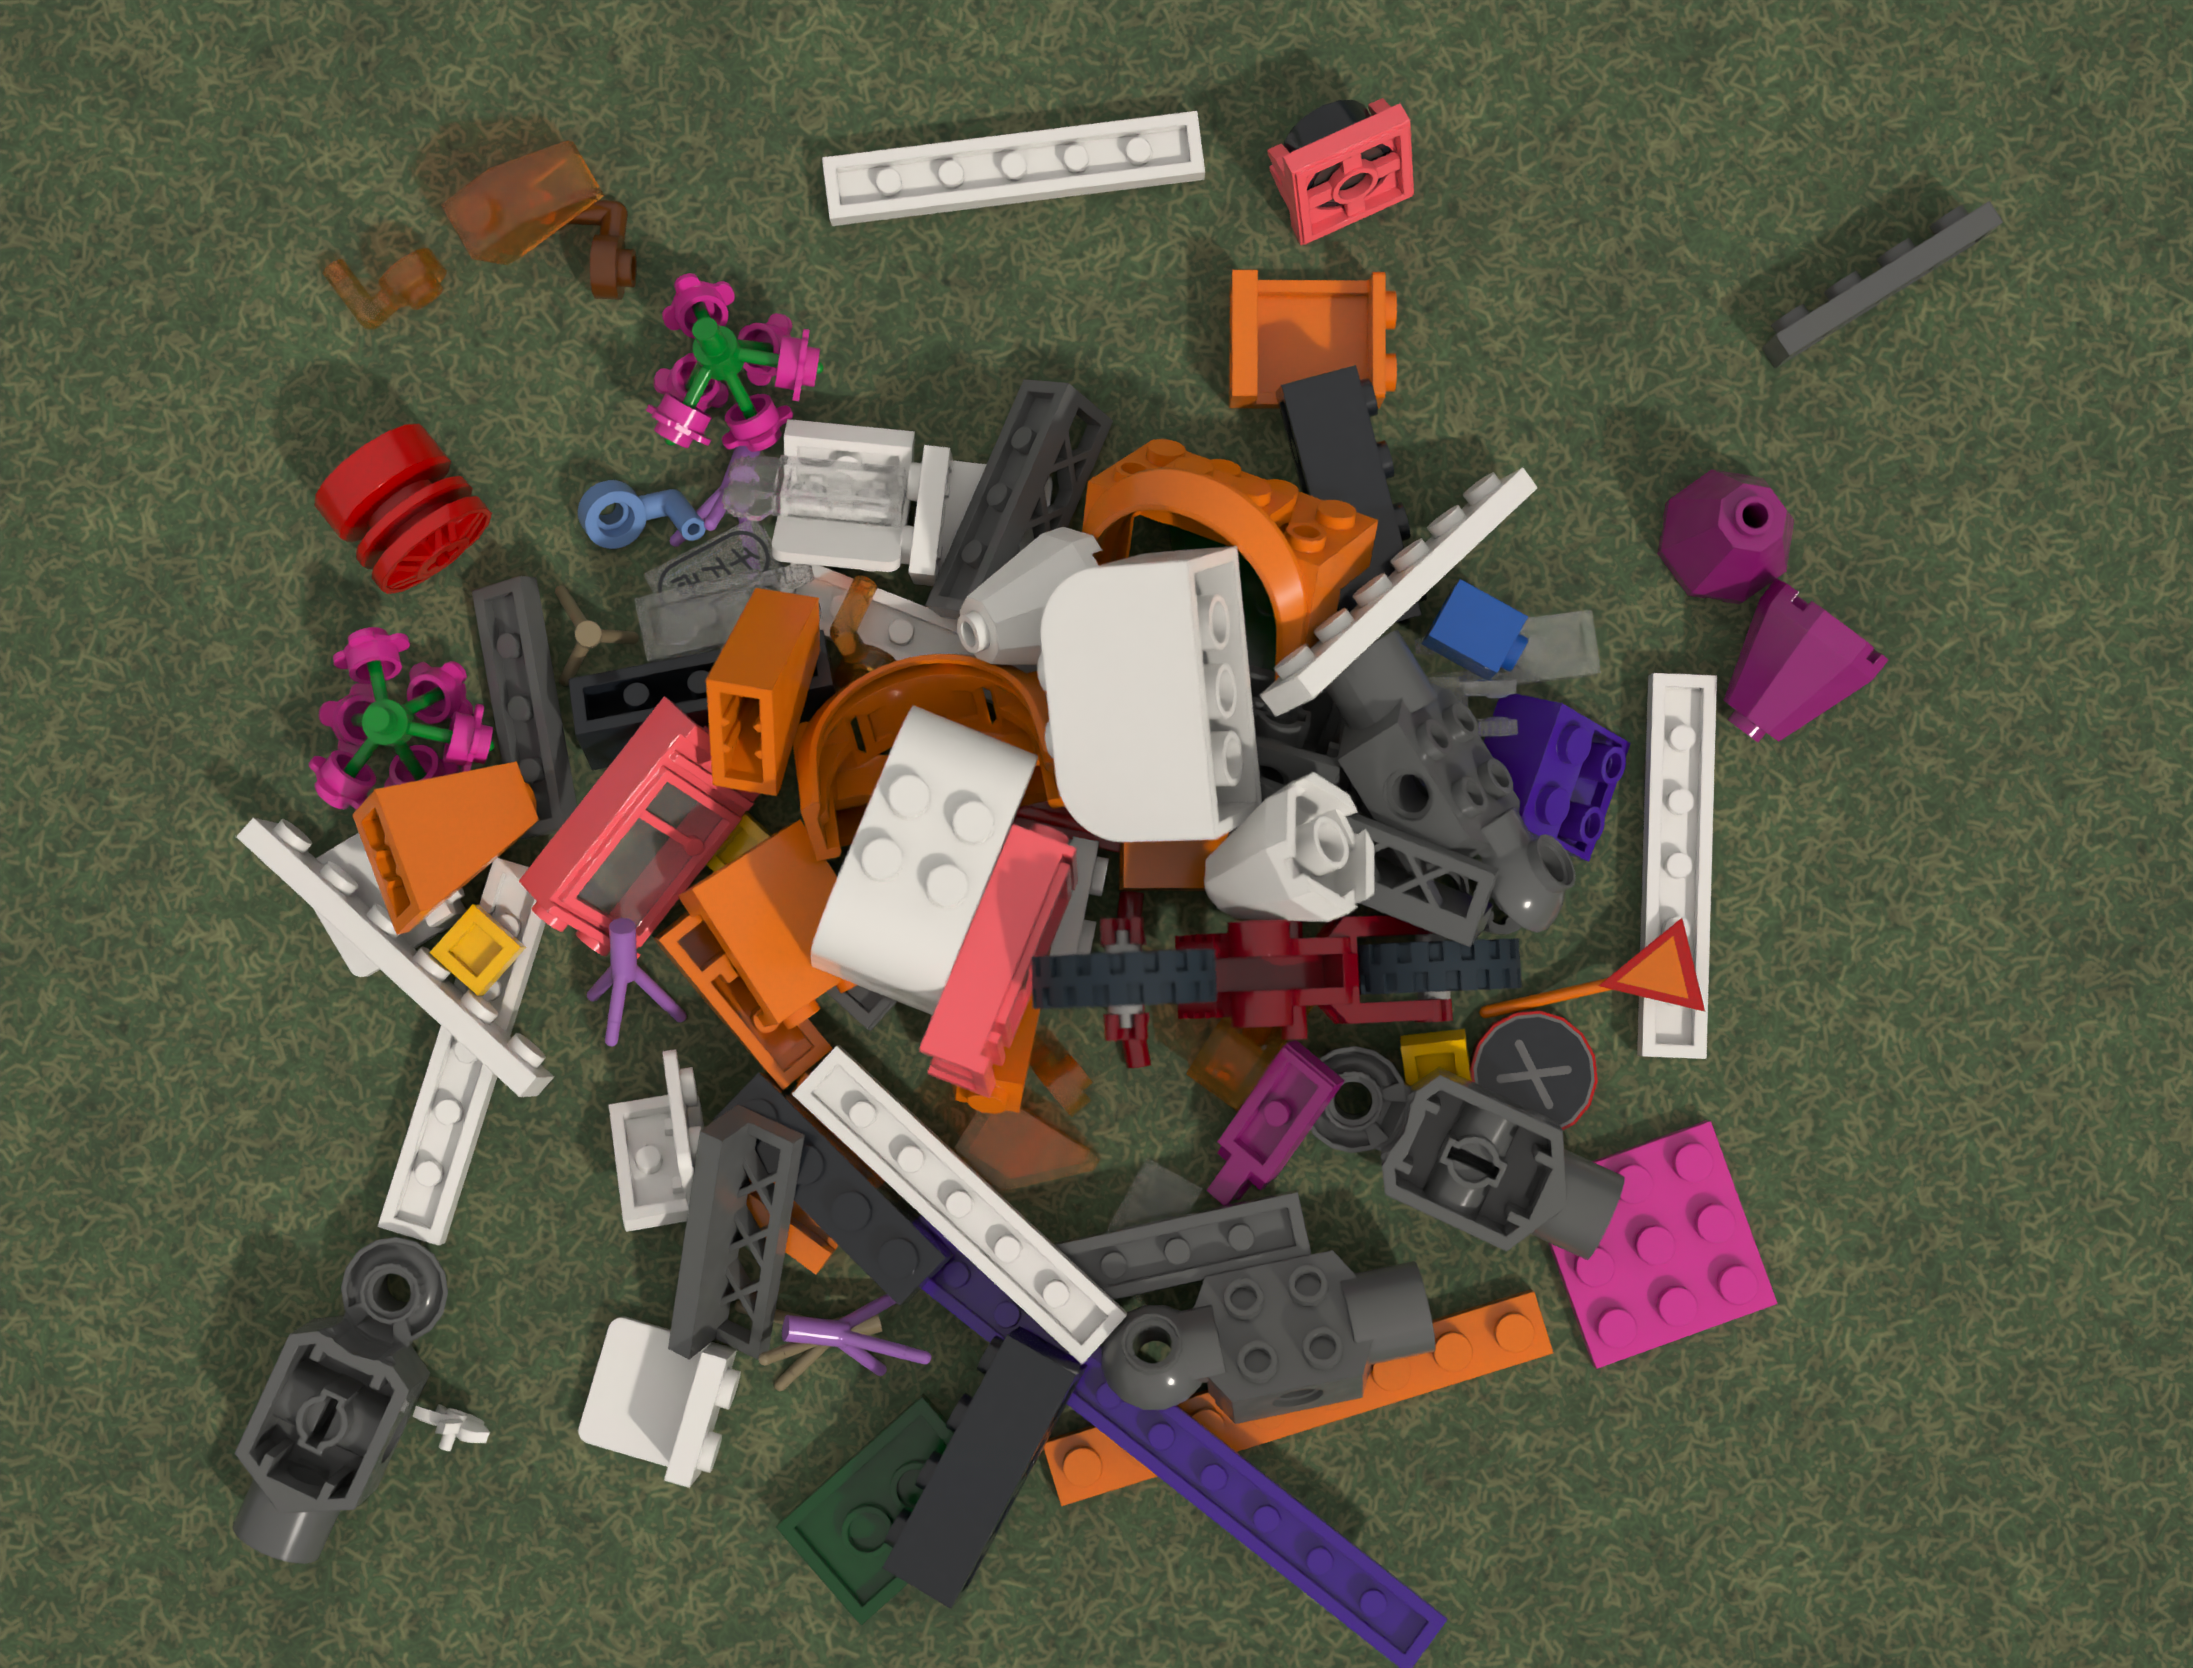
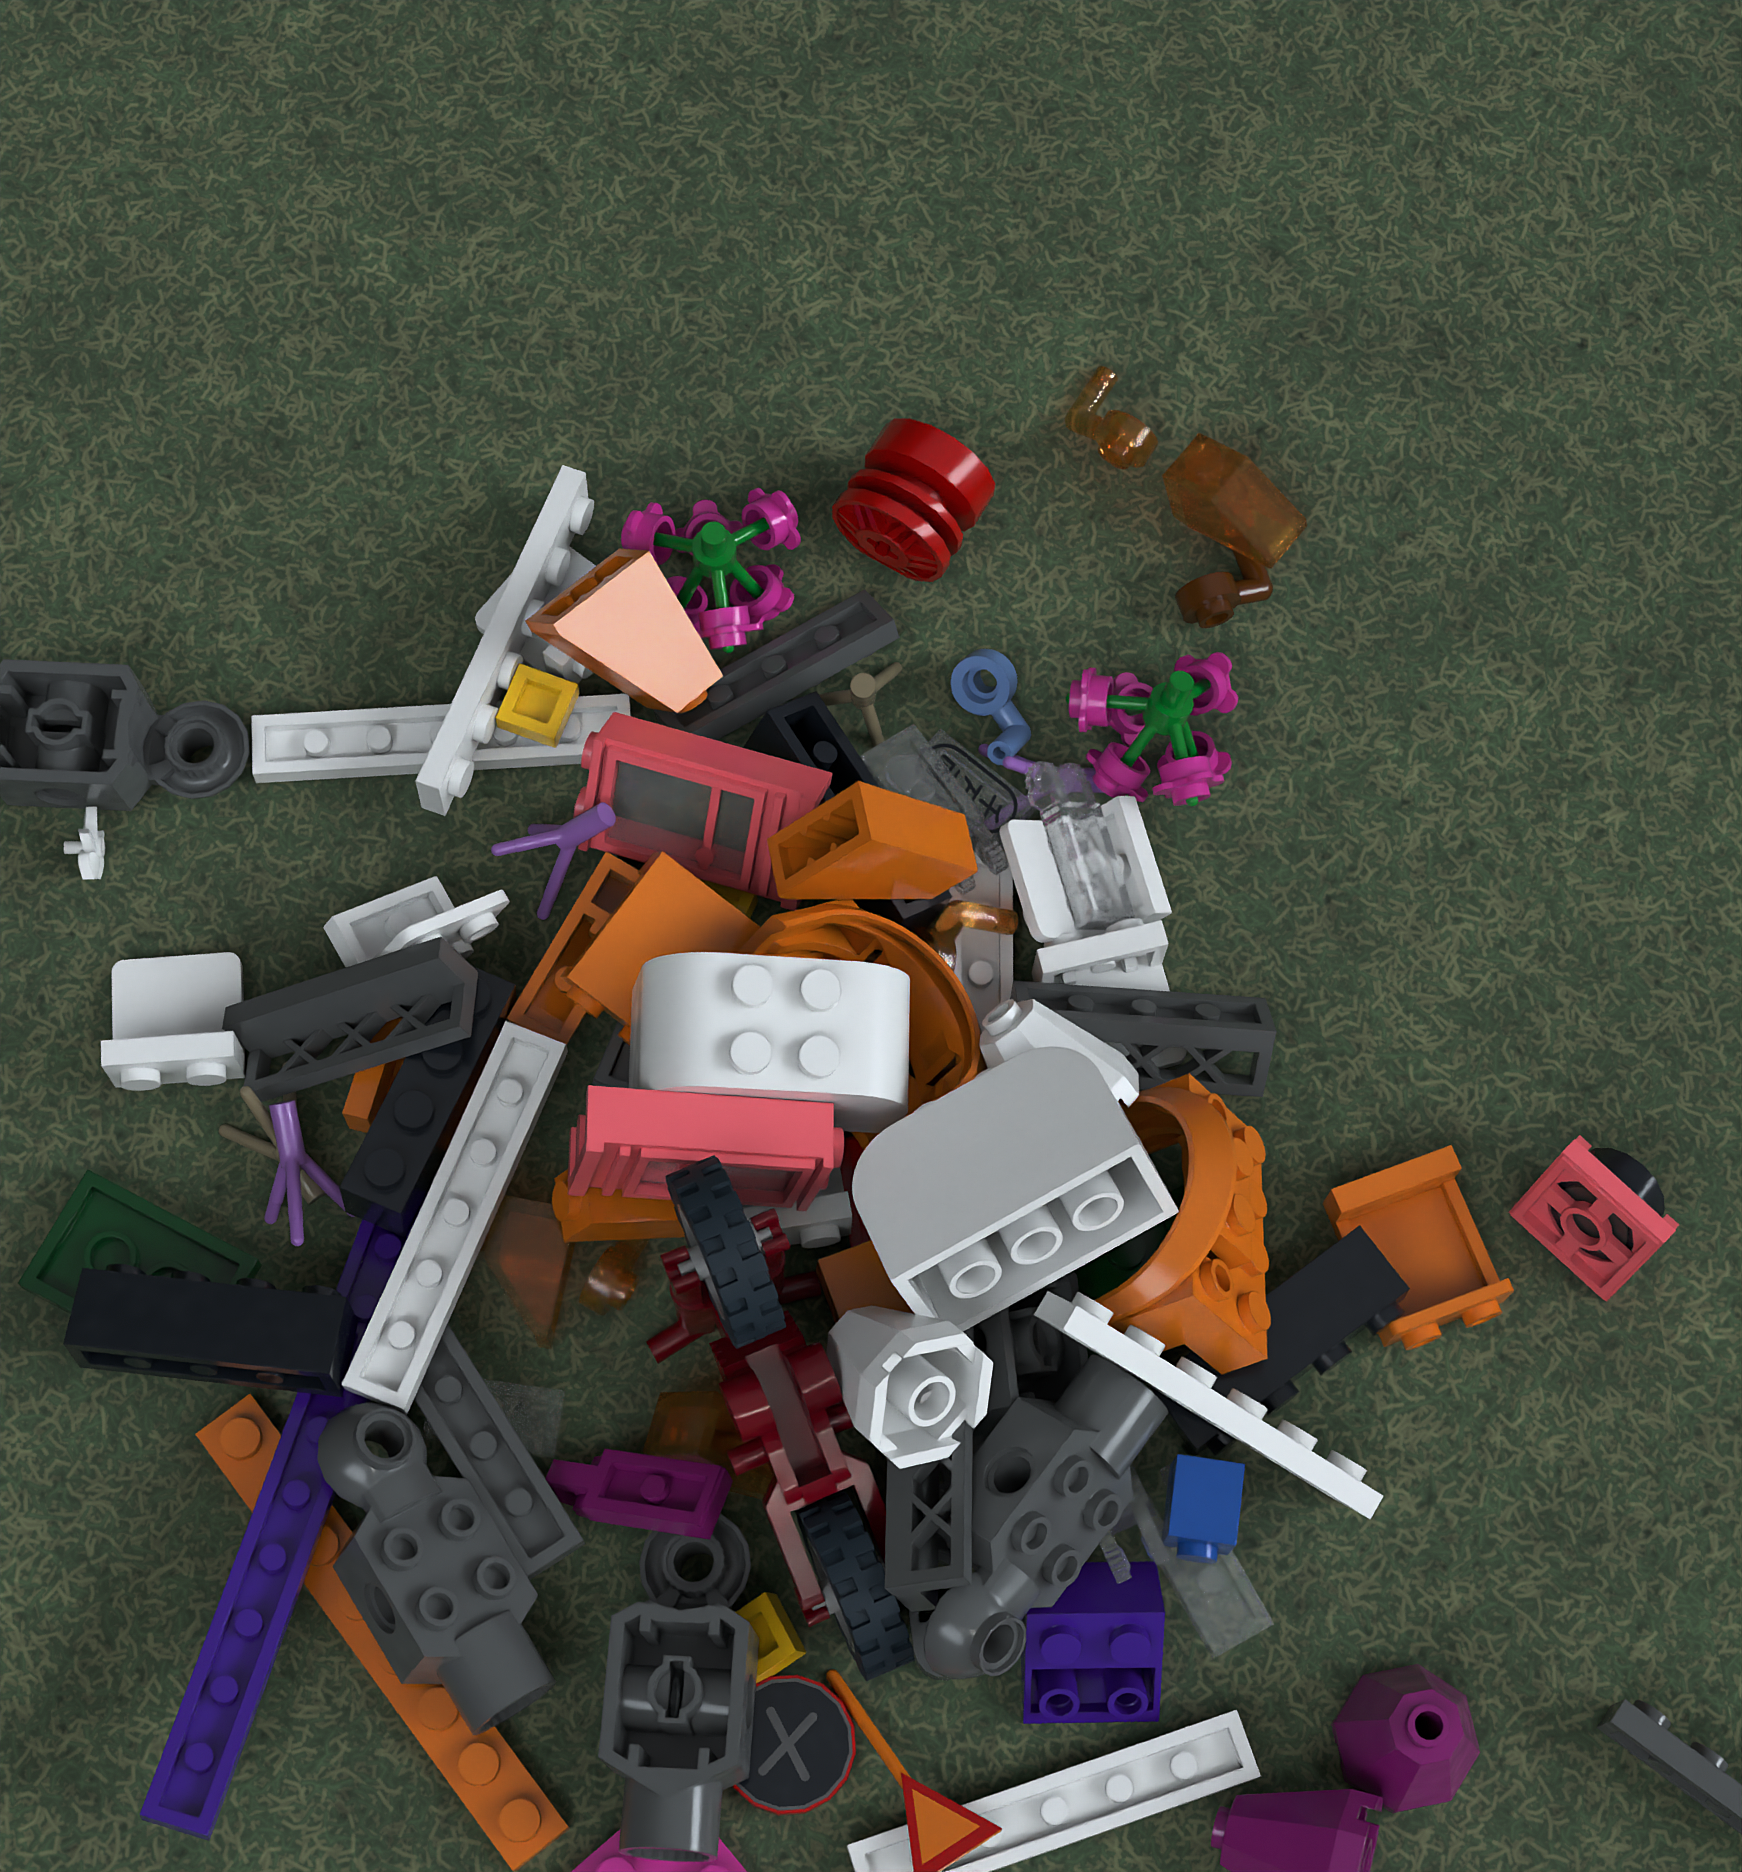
camera: 65 degrees right, 15 degrees down
(1013, 168) = (1460, 920): white plate -> none

